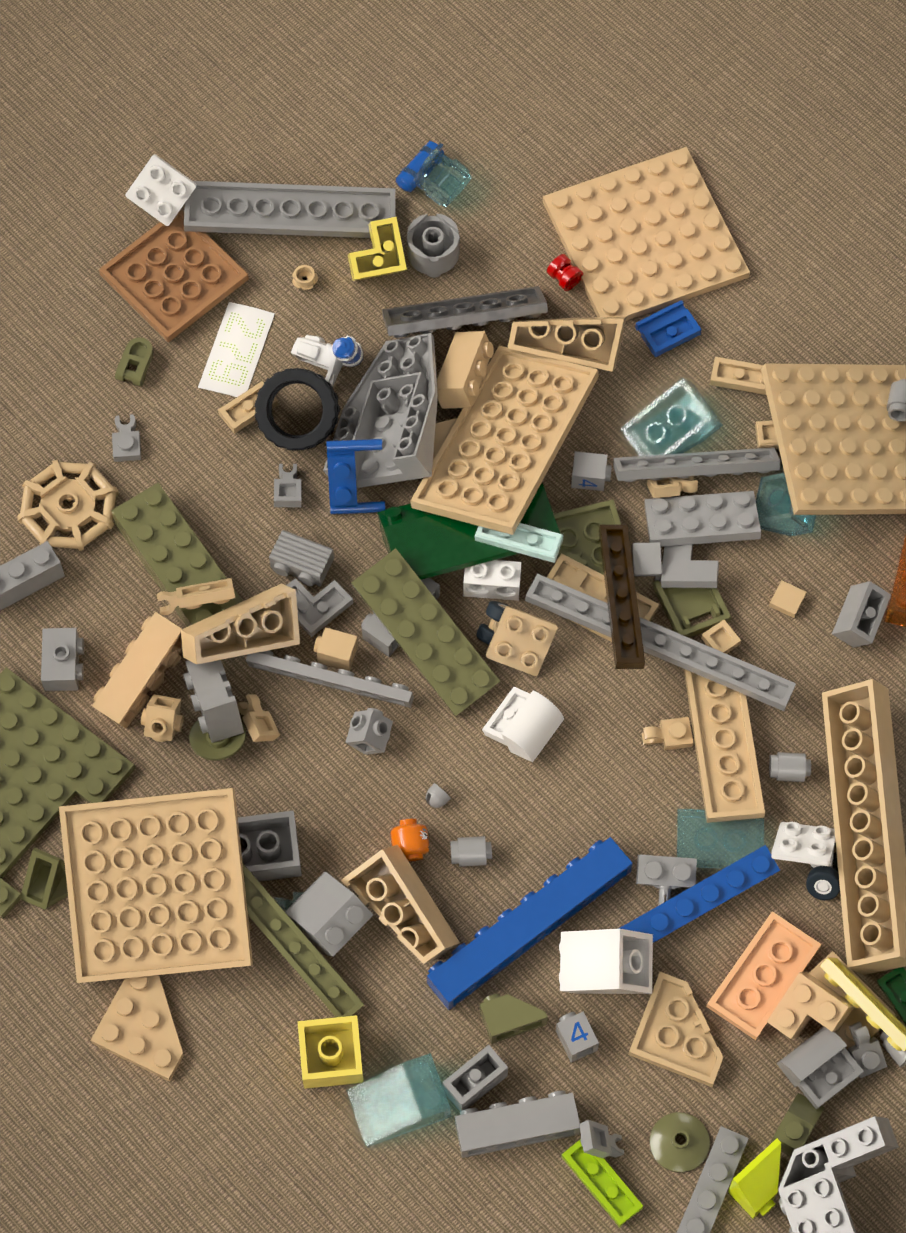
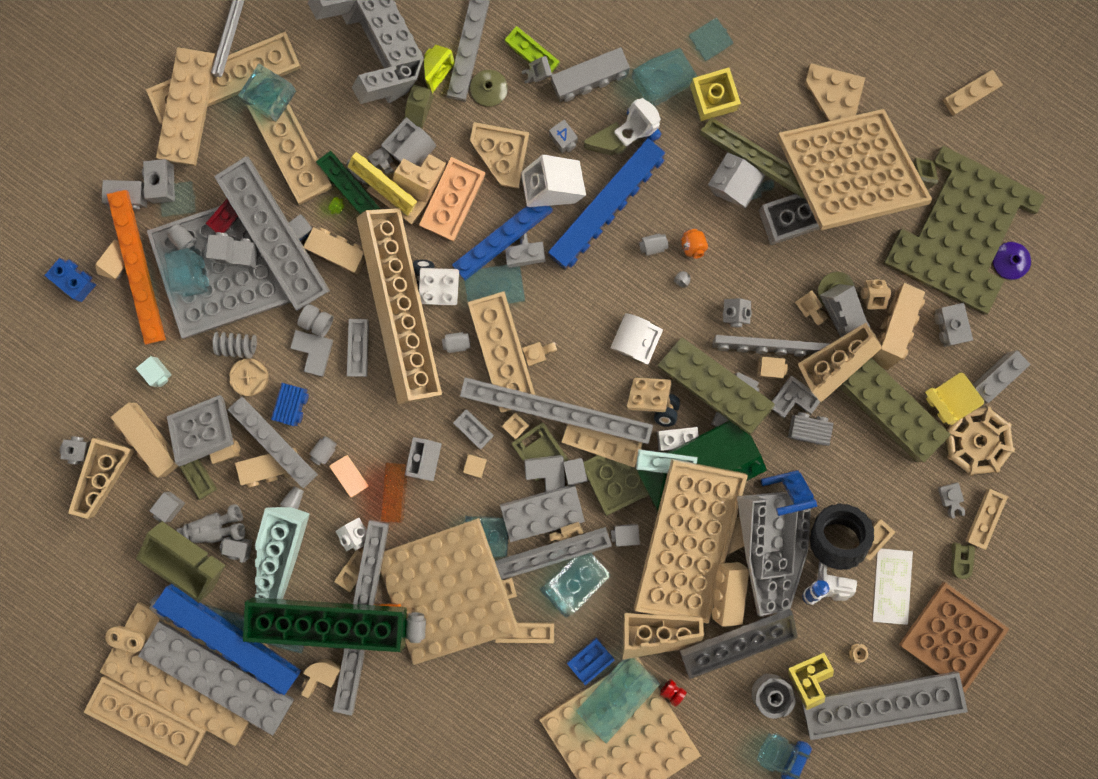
camera: 170 degrees right, 20 degrees up
(88, 405) = (986, 519): none -> tan plate
(92, 557) = (954, 399): none -> light yellow bracket
(161, 190) = (984, 697): white plate -> none
(196, 595) = (876, 376): tan plate -> none
(287, 488) = (832, 479): light grey plate -> none
(313, 1151) = (711, 39): none -> clear light blue piece
(403, 903) = (689, 196): tan wedge -> none
(453, 1028) = (643, 120): none -> white piece
(475, 1078) = (621, 94): light grey brick -> none
(621, 597) = (588, 434): dark brown plate -> none
(641, 273) = (617, 698): none -> clear light blue slope
(782, 645) = (473, 429): none -> light grey plate

